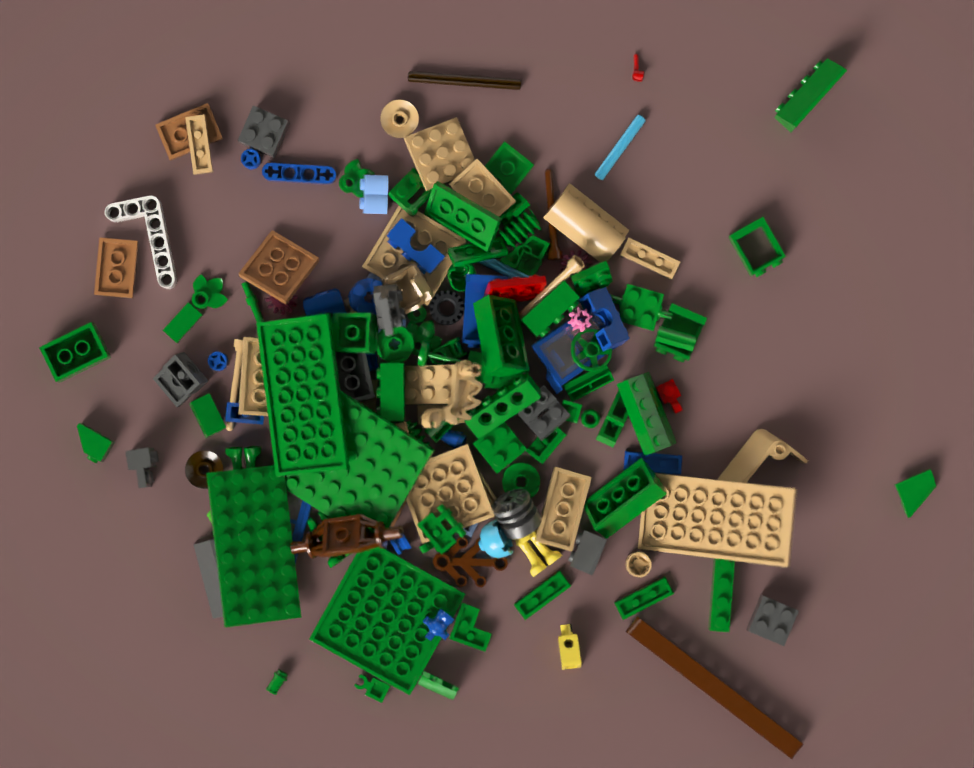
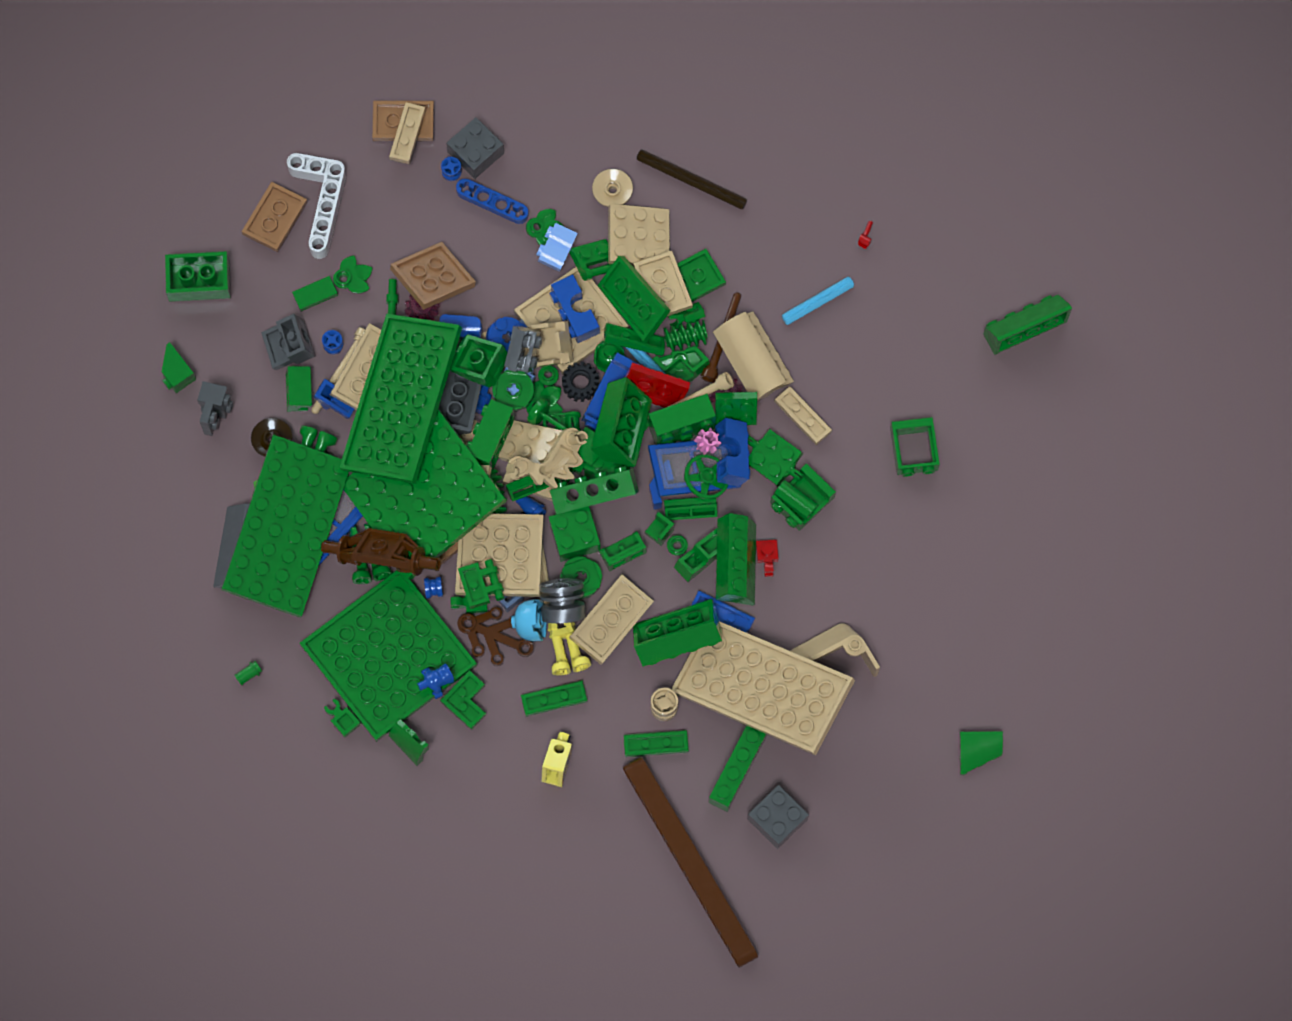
camera: 20 degrees right, 15 degrees down
(544, 414) = (631, 517): dark grey brick -> none
(587, 552) = (618, 671): dark grey slope -> none

